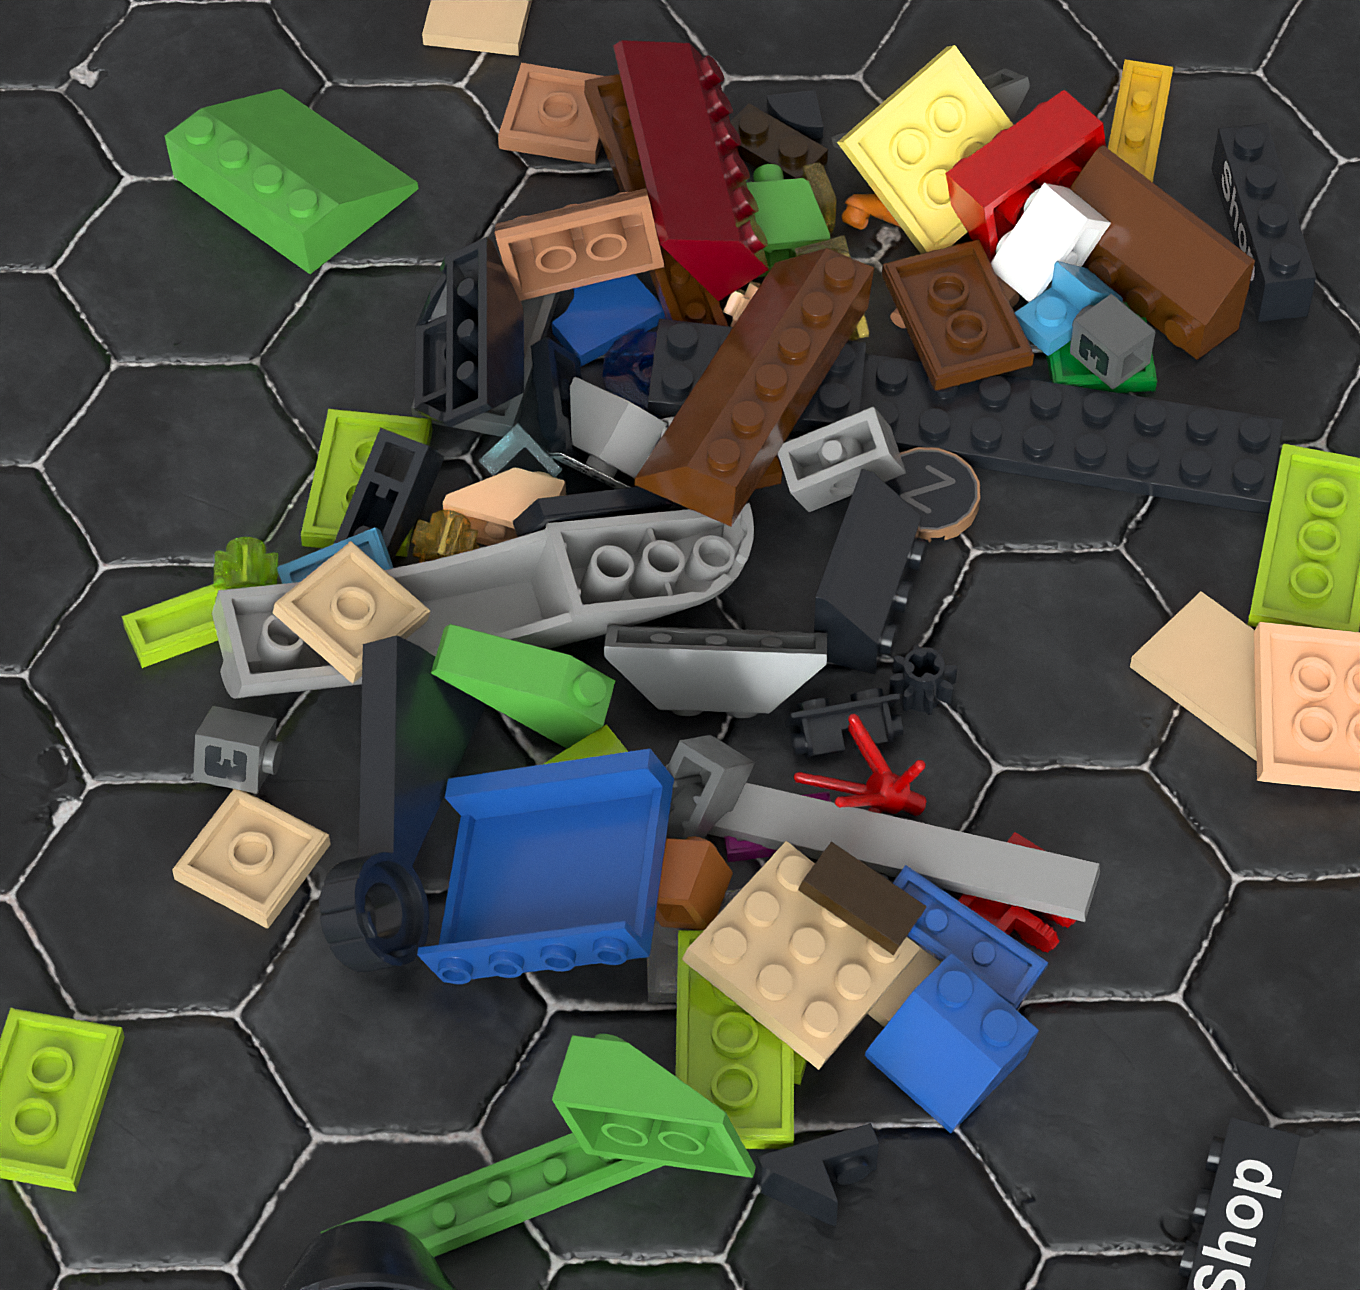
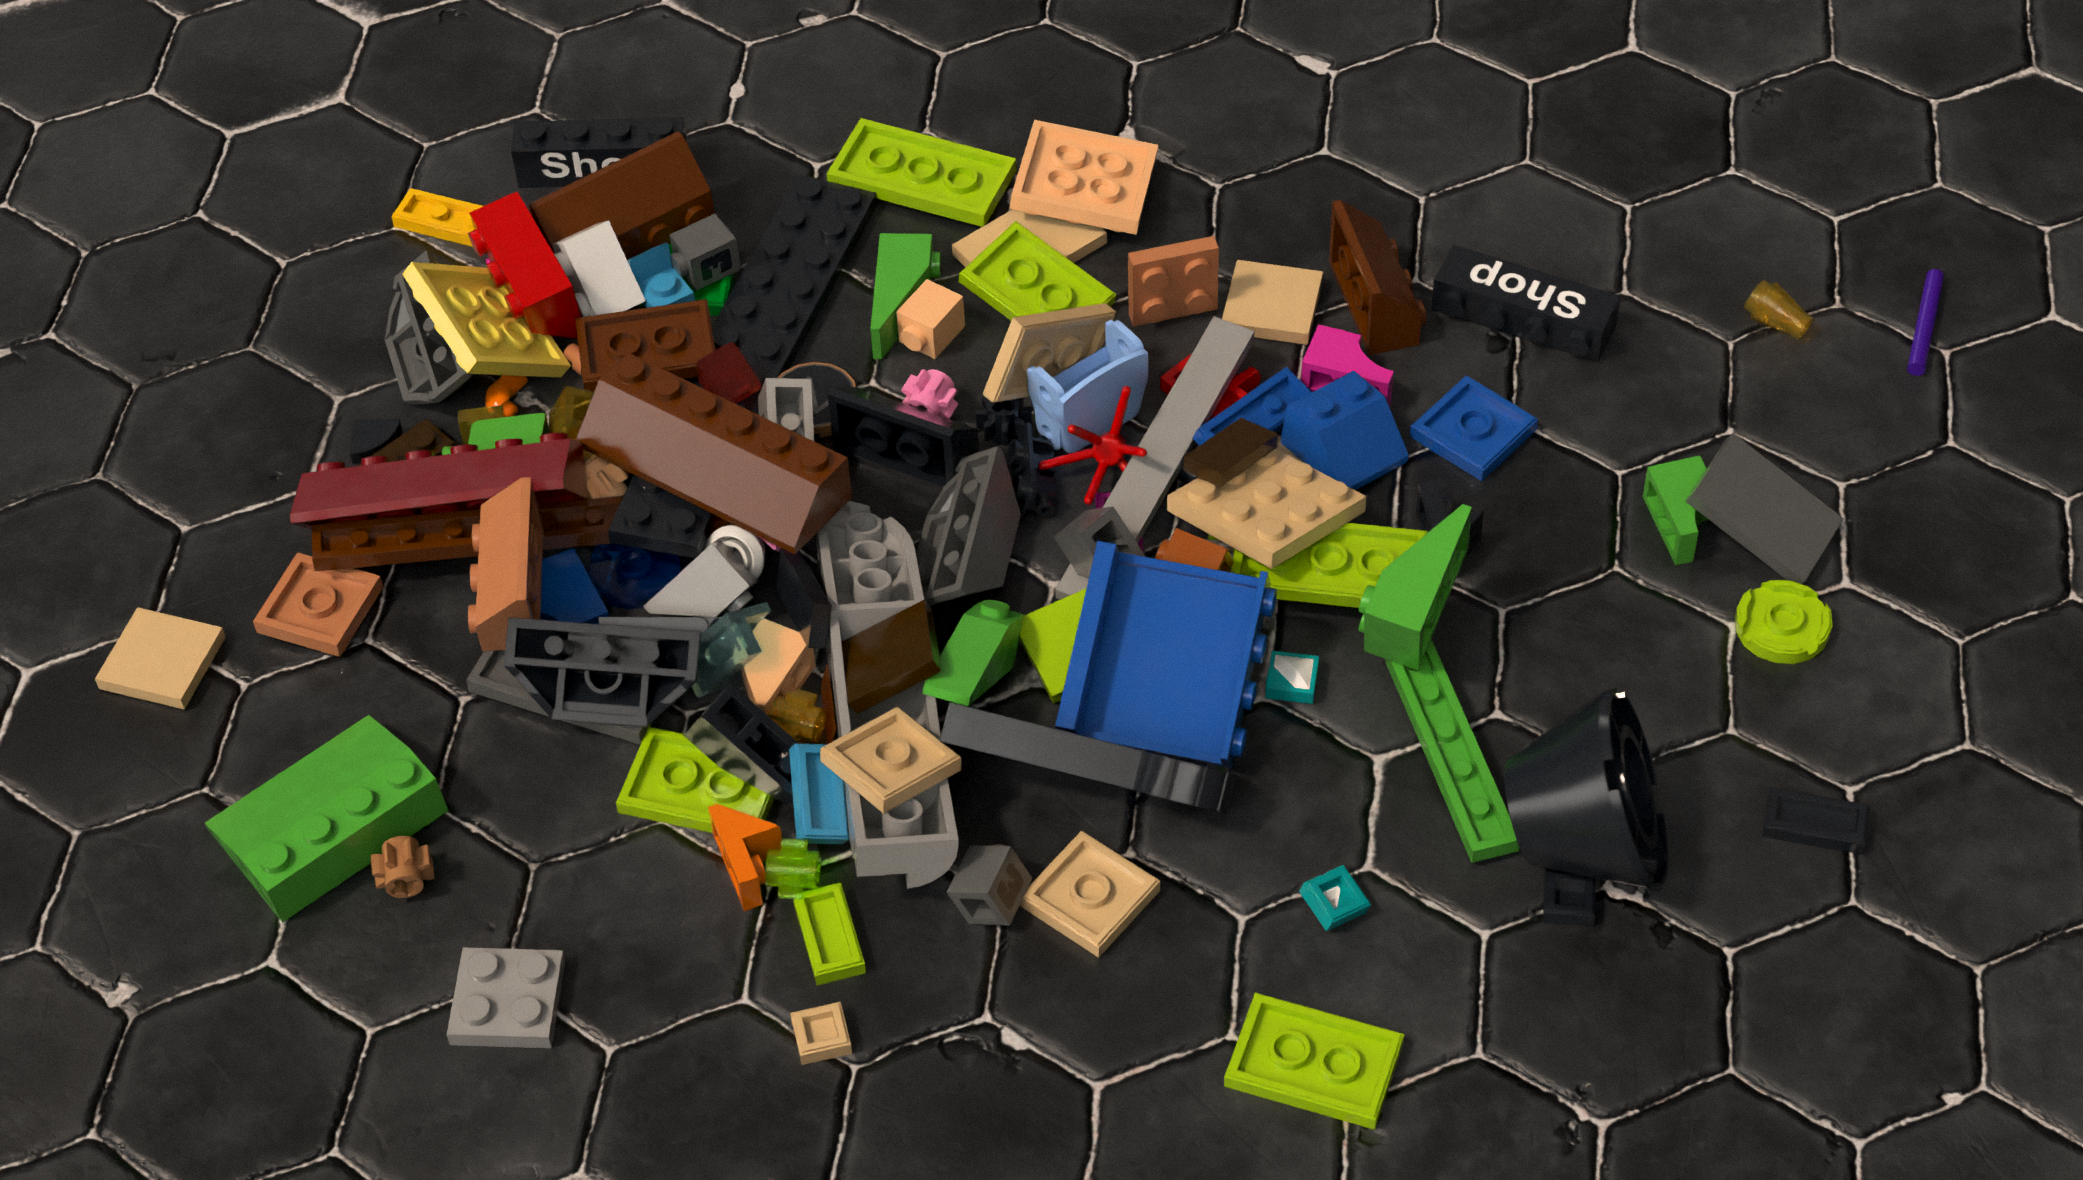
camera: 80 degrees left, 5 degrees down
(58, 635) = (821, 1033): none -> tan tile
(88, 366) = (506, 998): none -> light grey plate
(225, 245) = (402, 867): none -> medium nougat gear
(254, 1096) = (1335, 898): none -> teal tile
(270, 517) = (743, 847): none -> orange slope
(499, 594) = (891, 656): none -> dark brown tile
(573, 1017) = (1292, 677): none -> teal tile
(587, 471) = (755, 600): sticker -> none
(919, 393) = (727, 374): none -> clear red slope
(937, 599) = (932, 392): none -> bright pink gear
(966, 759) = (1090, 389): none -> light blue piece
(987, 688) = (1045, 340): none -> tan tile
(1015, 1203) = (1473, 428): none -> blue tile
(1065, 584) = (930, 319): none -> light nougat brick
(1075, 1033) = (1337, 353): none -> dark pink arch
(1112, 546) = (901, 269): none -> bright green slope
(1142, 687) = (1029, 277): none -> lime tile
(1161, 819) = (1173, 281): none -> nougat plate
(1187, 951) = (1274, 300): none -> tan tile
(1225, 1048) = (1373, 281): none -> reddish brown slope

